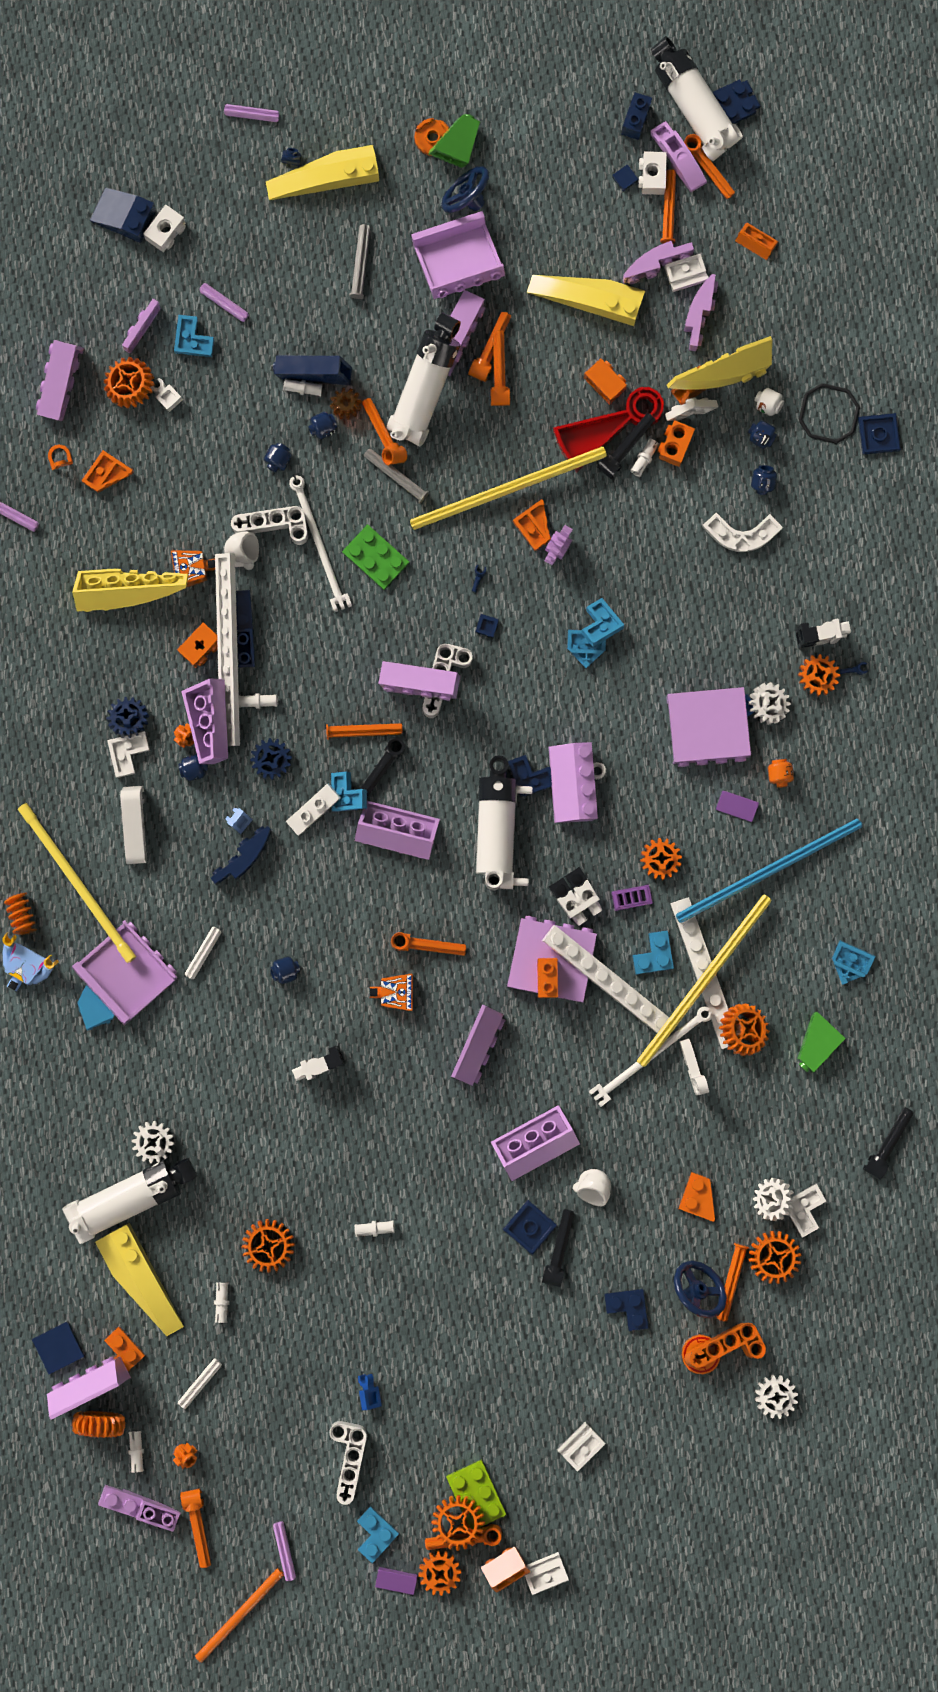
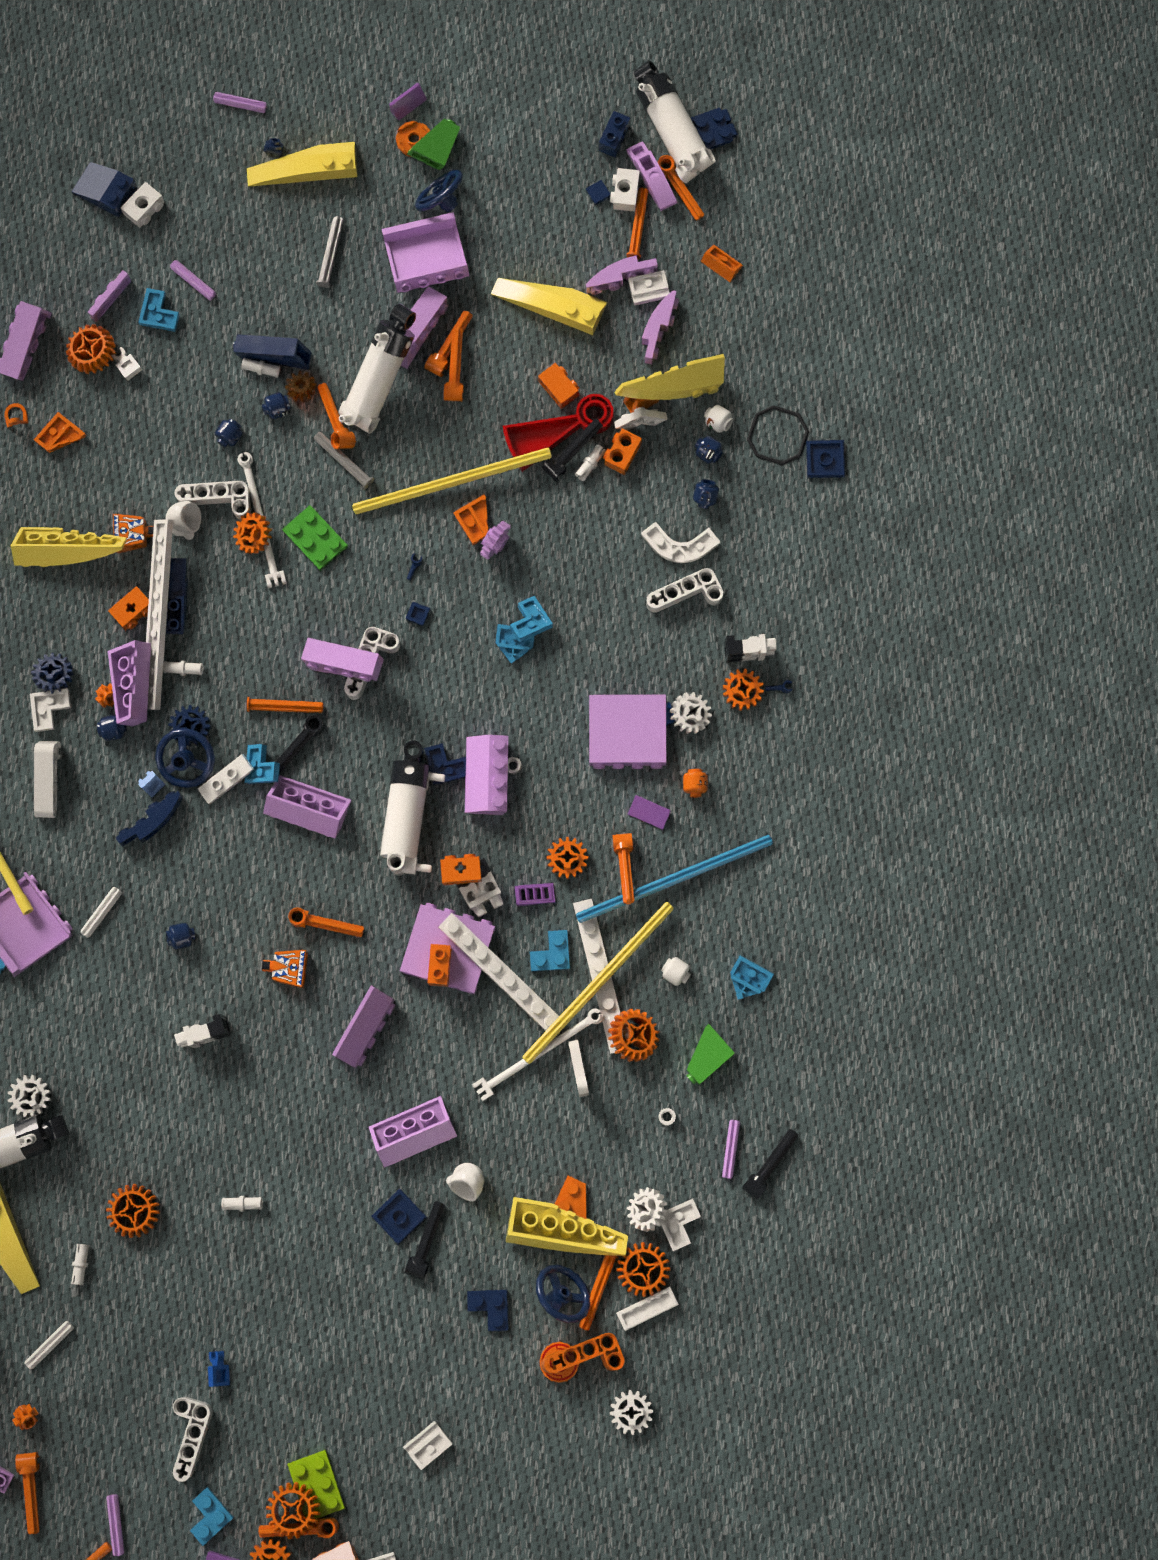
camera: 10 degrees right, 5 degrees down
(269, 787) = (177, 761): none -> dark blue piece
(313, 558) = (252, 533): none -> orange gear
(423, 99) = (407, 101): none -> medium lavender slope
(551, 888) = (471, 874): none -> orange brick
(684, 1225) = (553, 1228): none -> light yellow wedge
(715, 842) = (623, 847): none -> orange axle
(749, 583) = (682, 593): none -> white beam
(779, 962) = (676, 971): none -> white head
(782, 1295) = (647, 1308): none -> white plate
(789, 1104) = (661, 1116): none -> white axle
(848, 1132) = (731, 1146): none -> lavender axle

